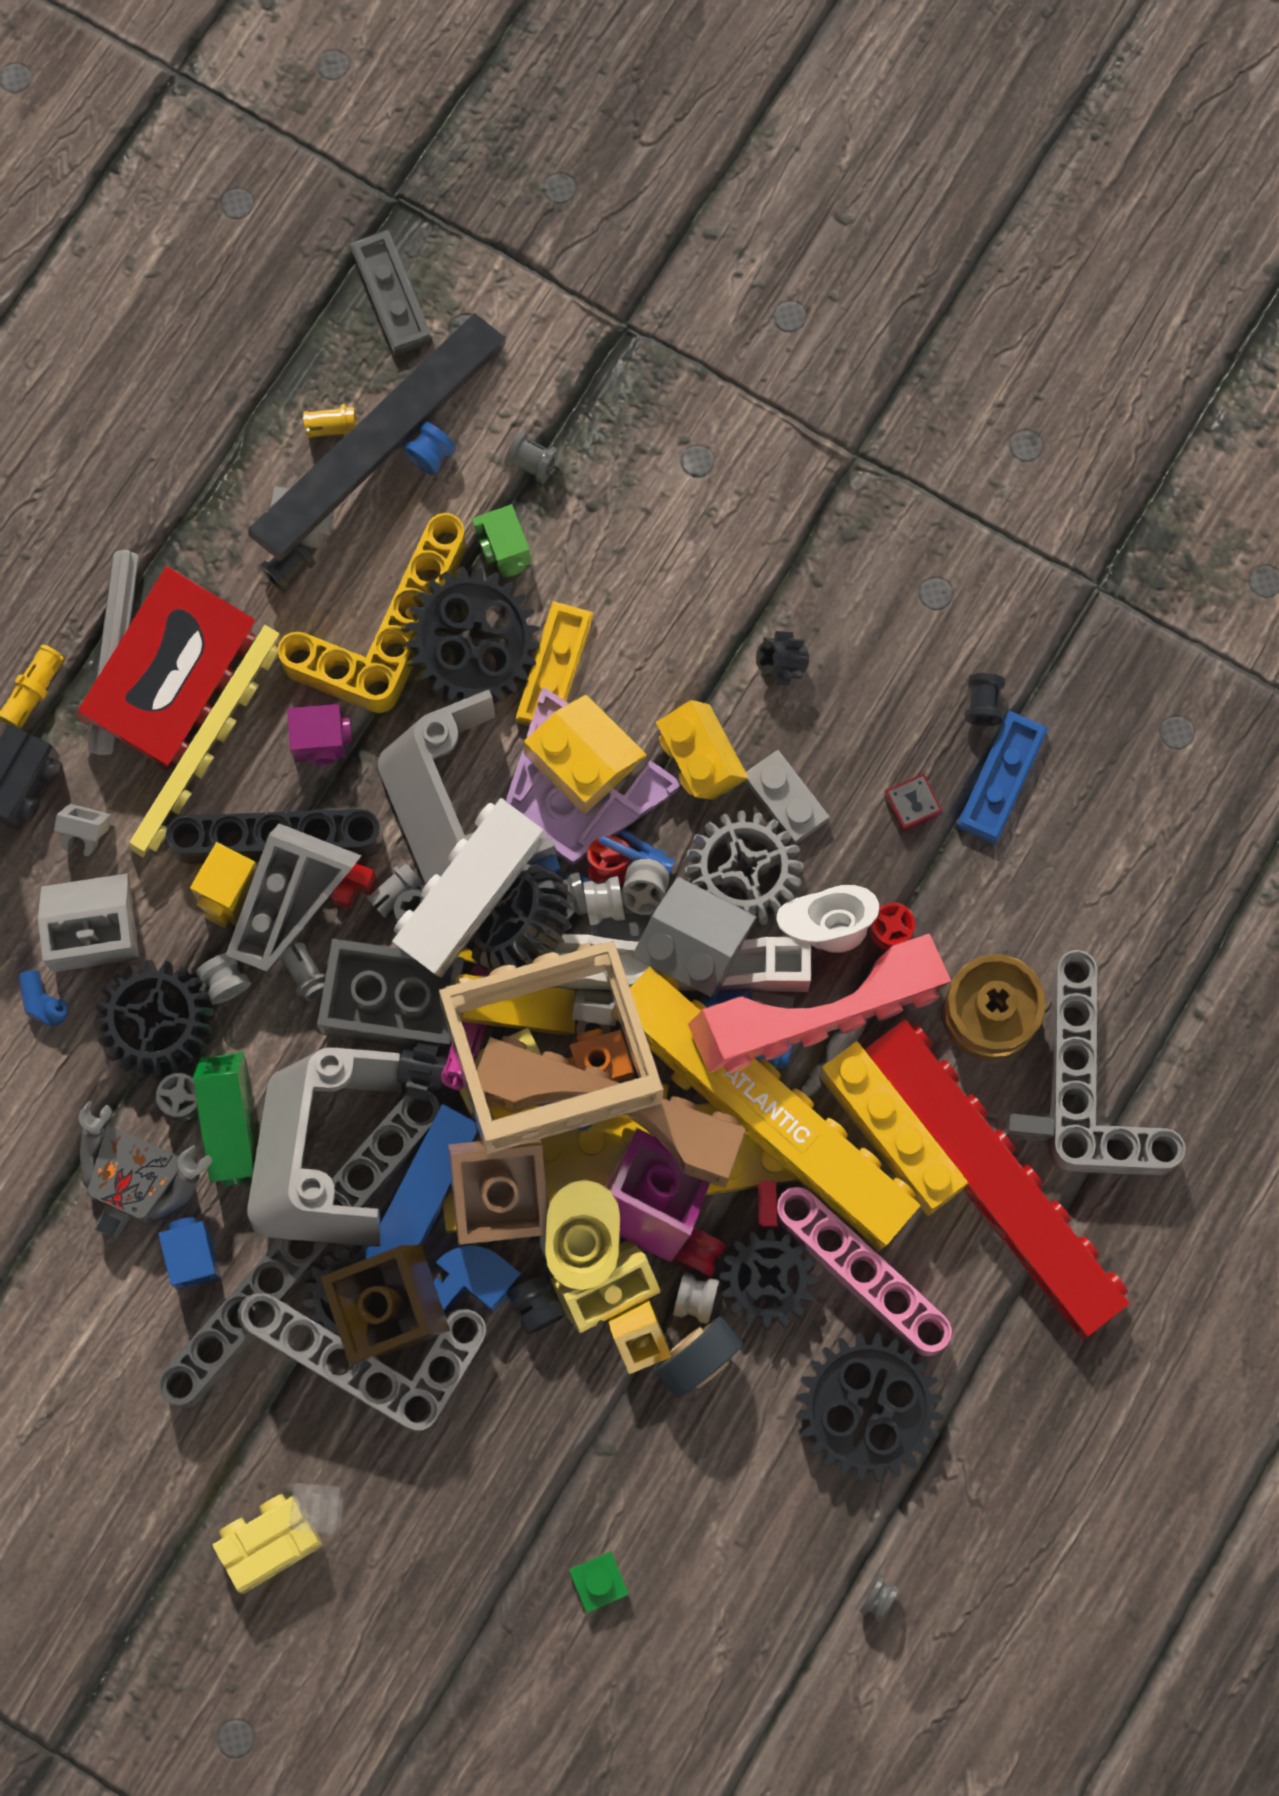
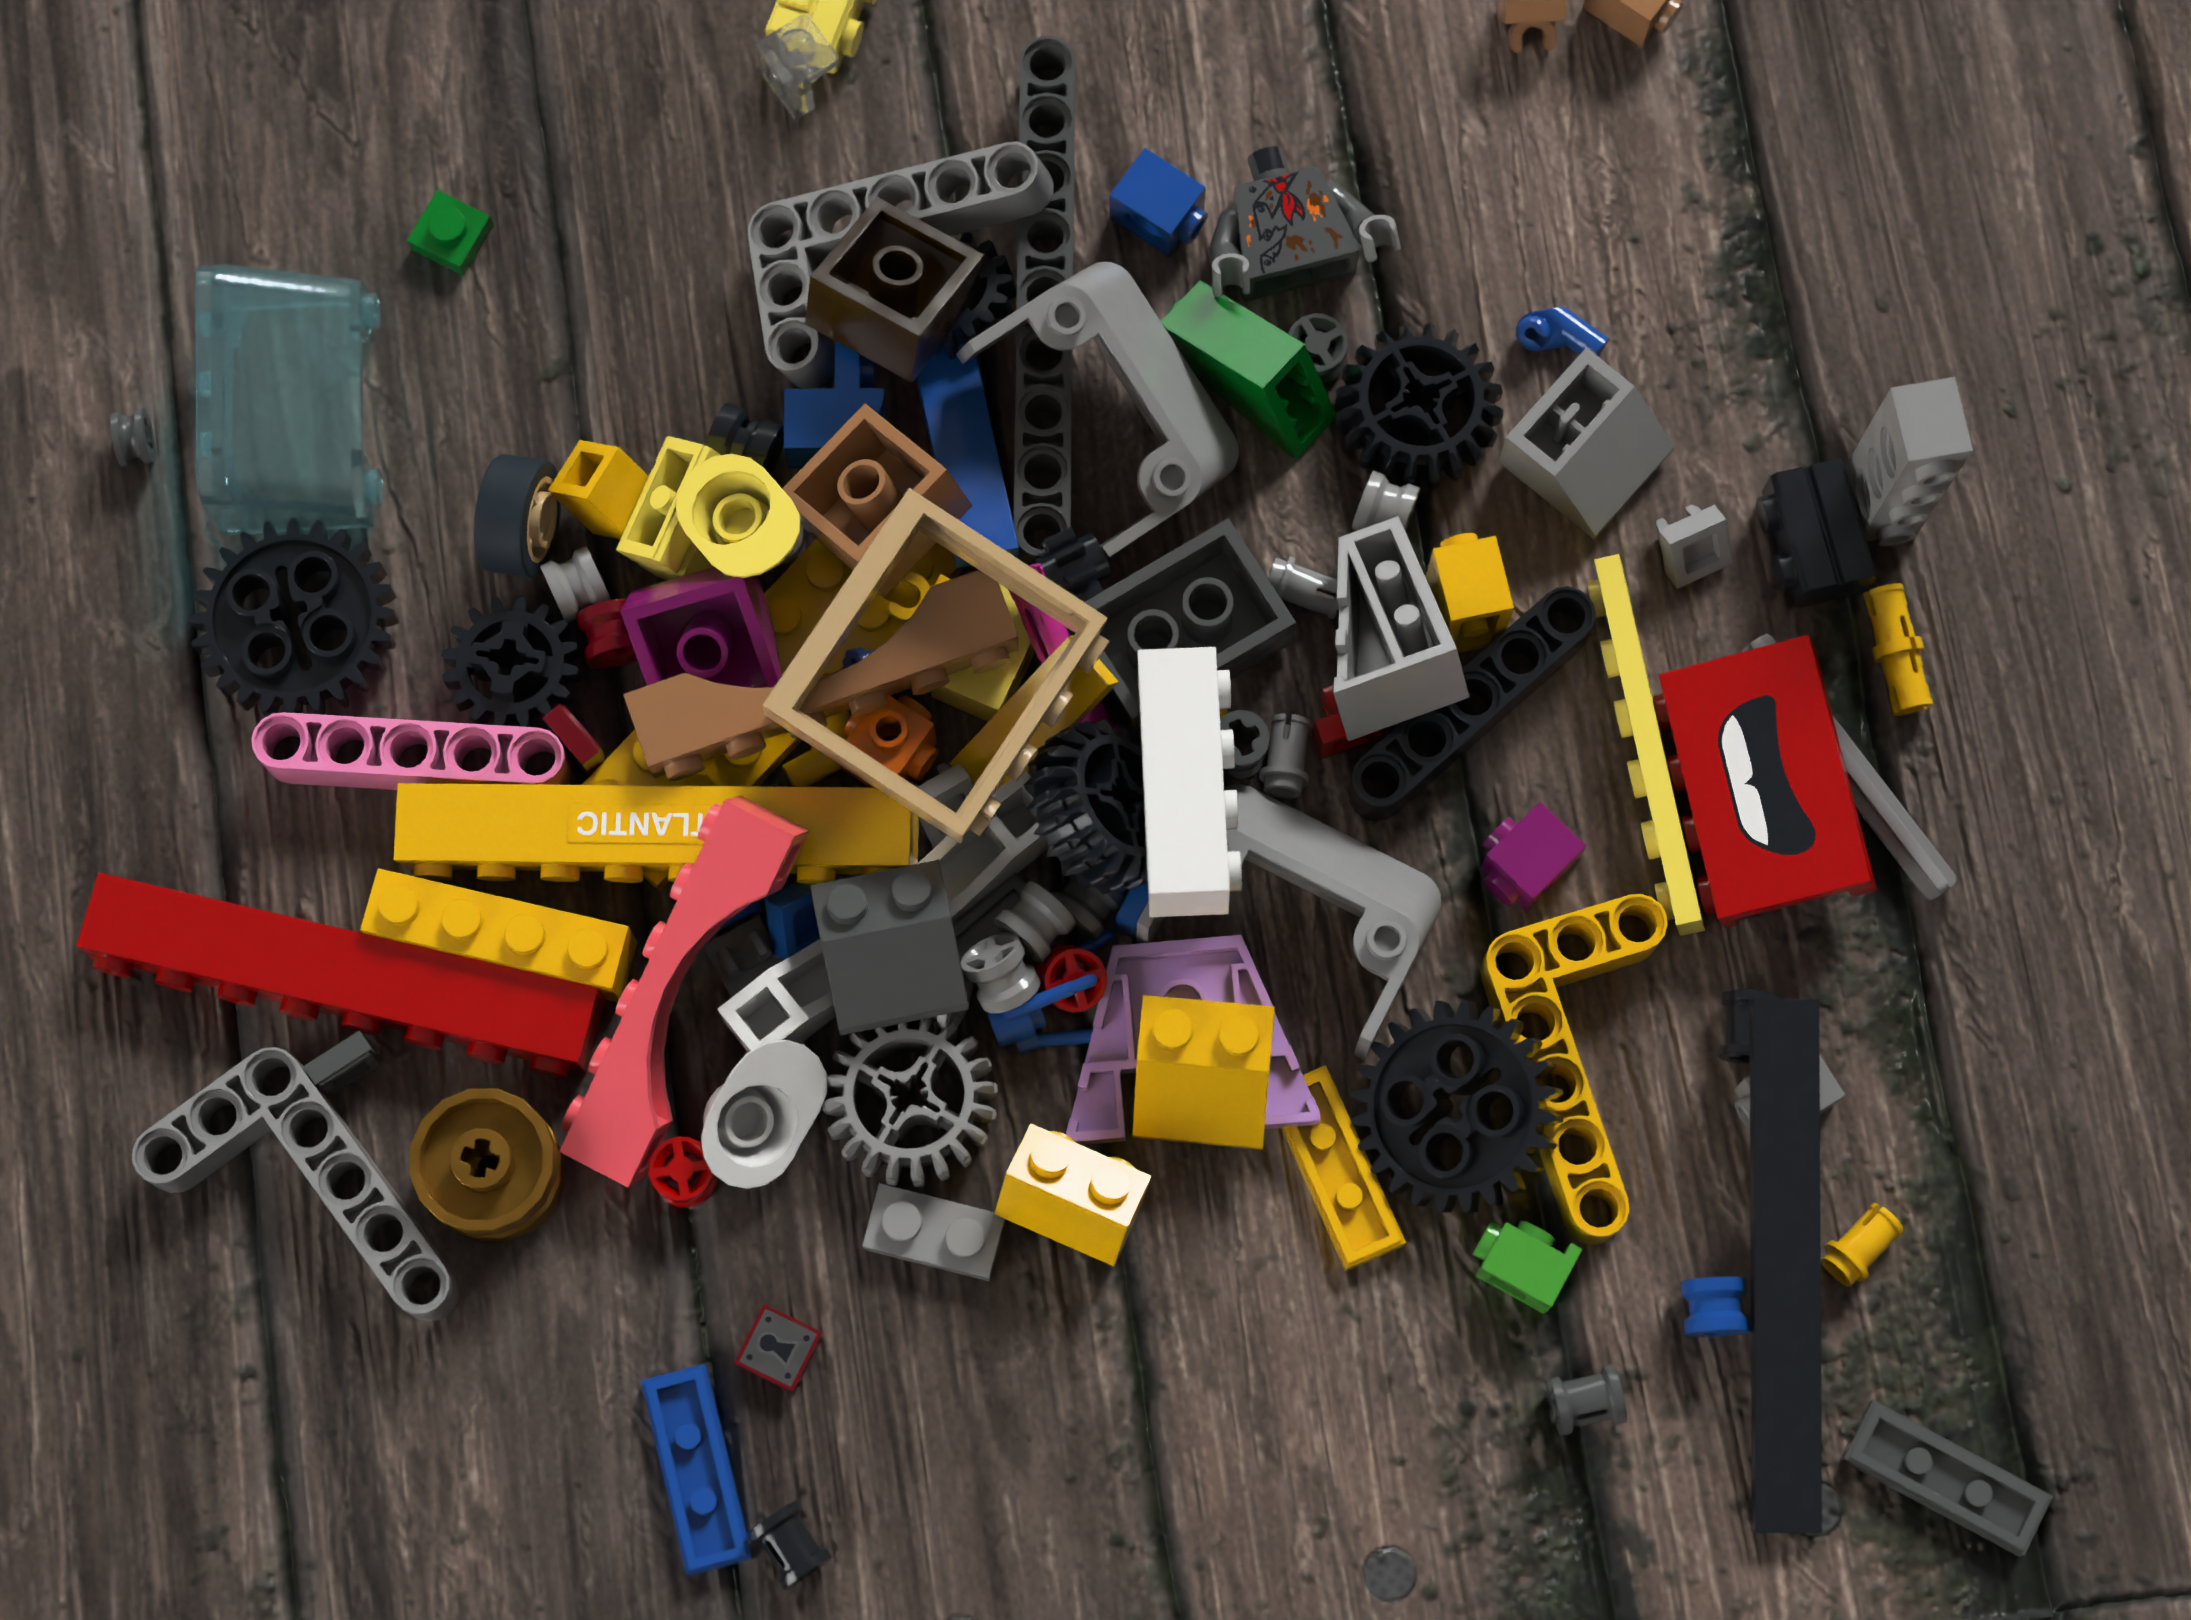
camera: 140 degrees right, 0 degrees up
(772, 1543) = (282, 399): none -> clear light blue windscreen
(782, 658) = (1072, 1391): black gear -> none

